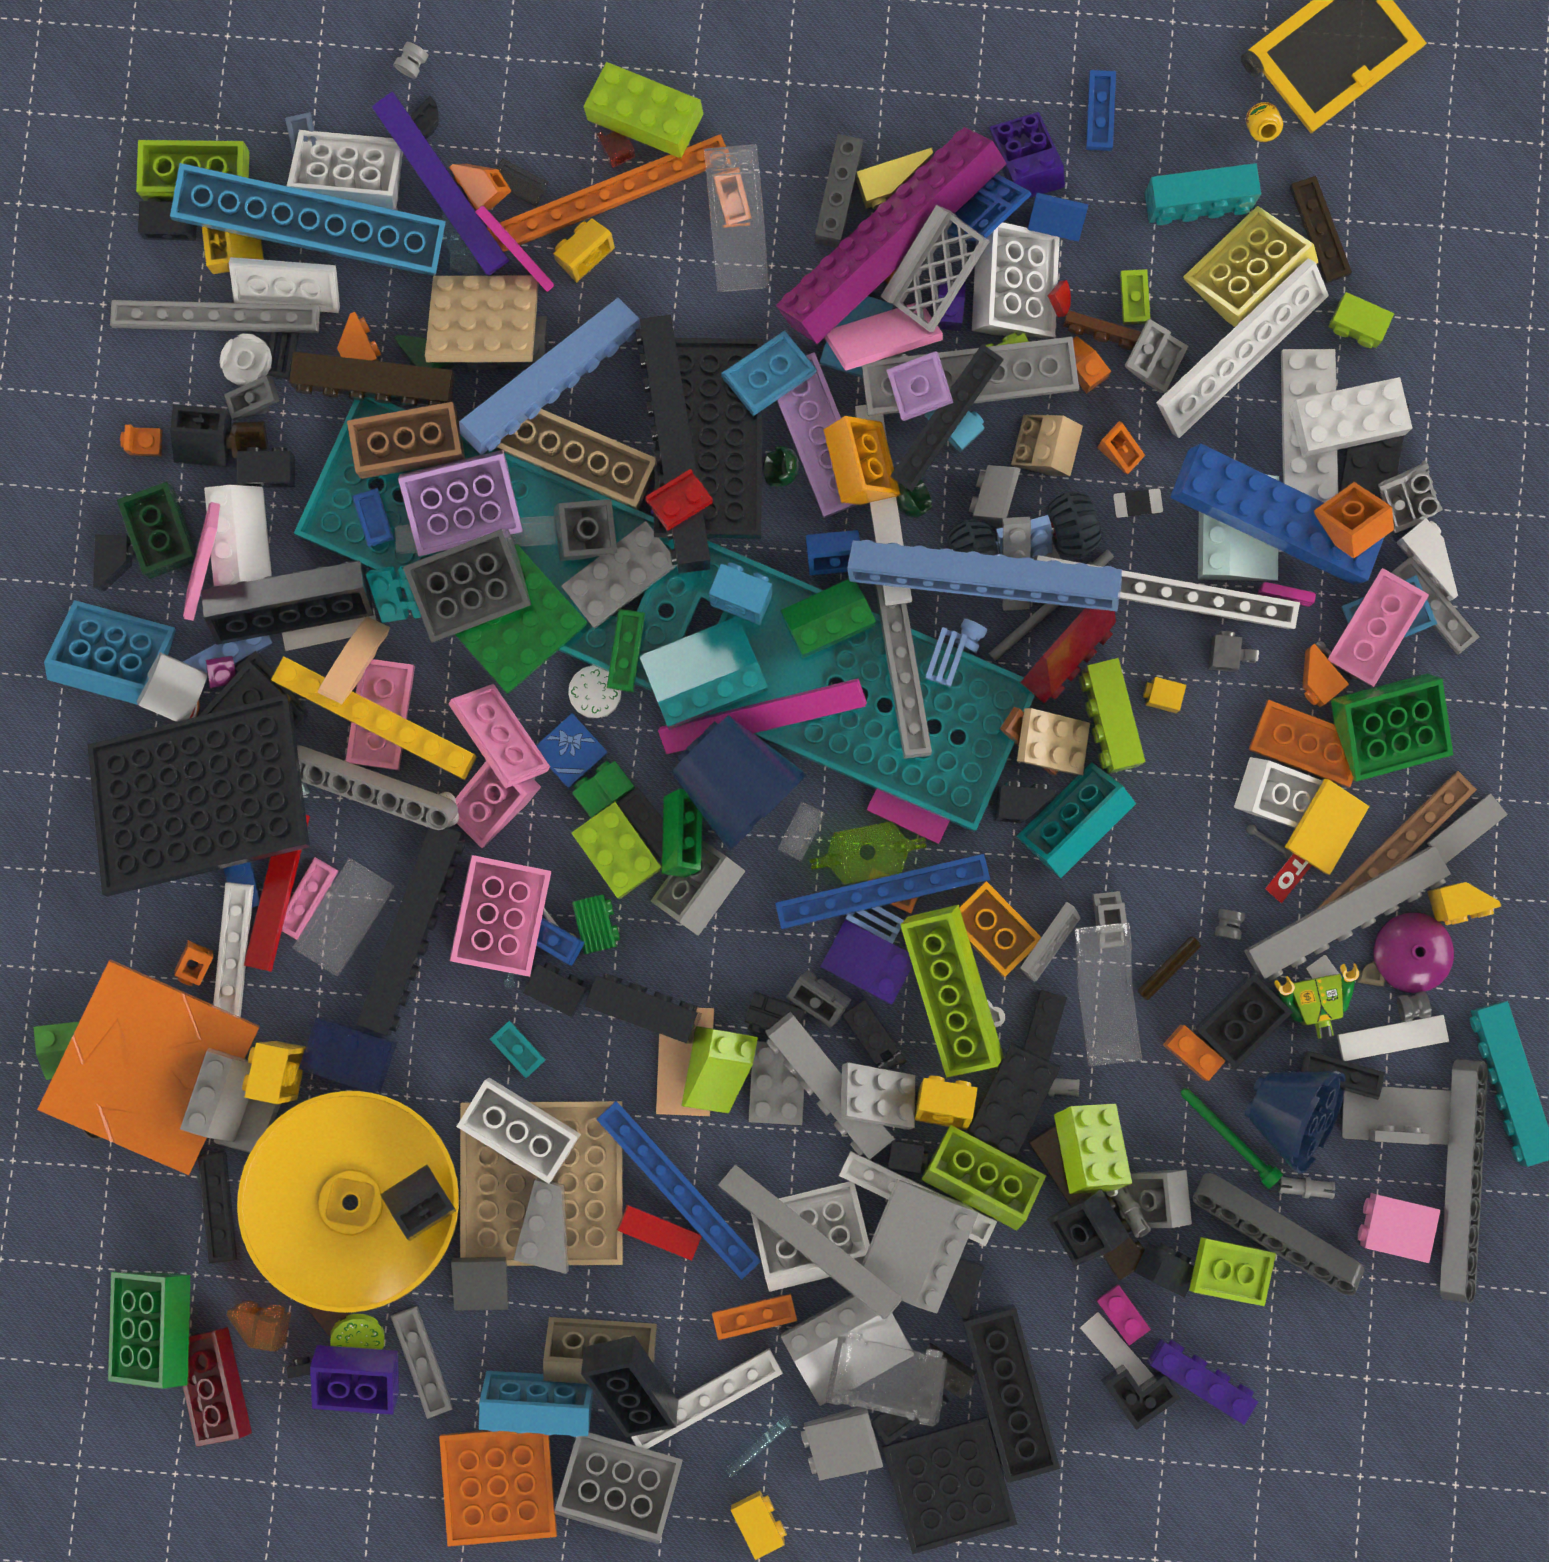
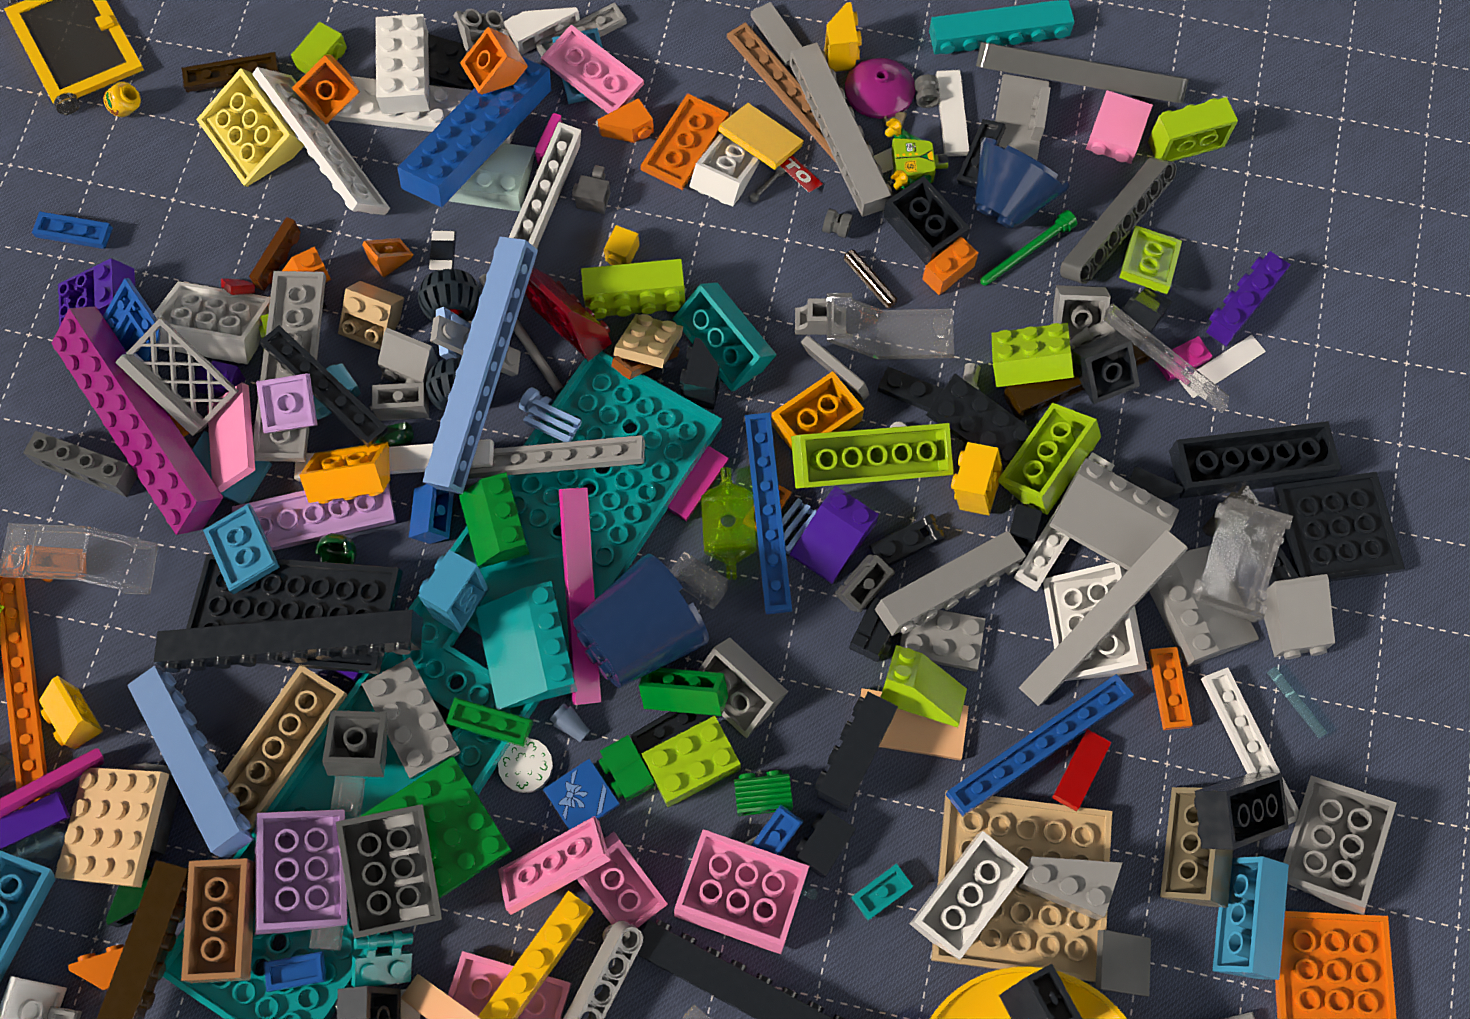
camera: 85 degrees left, 15 degrees down
(641, 726) = (569, 722): none -> sand blue cone
(679, 499) = (345, 634): red plate -> none
(758, 1524) = (1375, 710): yellow brick -> none
(878, 1096) = (965, 538): light grey plate -> none
(882, 180) = (82, 422): light yellow slope -> none
(950, 496) = (400, 401): none -> light grey brick
(1057, 217) = (157, 272): blue slope -> none
(1110, 1292) = (1166, 358): none -> clear tile
(1135, 296) = (251, 224): lime plate -> none
(1143, 1401) = (1263, 349): black brick -> none
(1156, 356) = (311, 212): light grey slope -> none
(1202, 194) = (171, 153): teal brick -> none
(1306, 1187) = (1078, 194): light grey pin -> none
(1308, 341) = (326, 88): none -> orange slope
(1393, 726) = (680, 70): green slope -> none
(1402, 1309) = (1192, 130): none -> lime brick

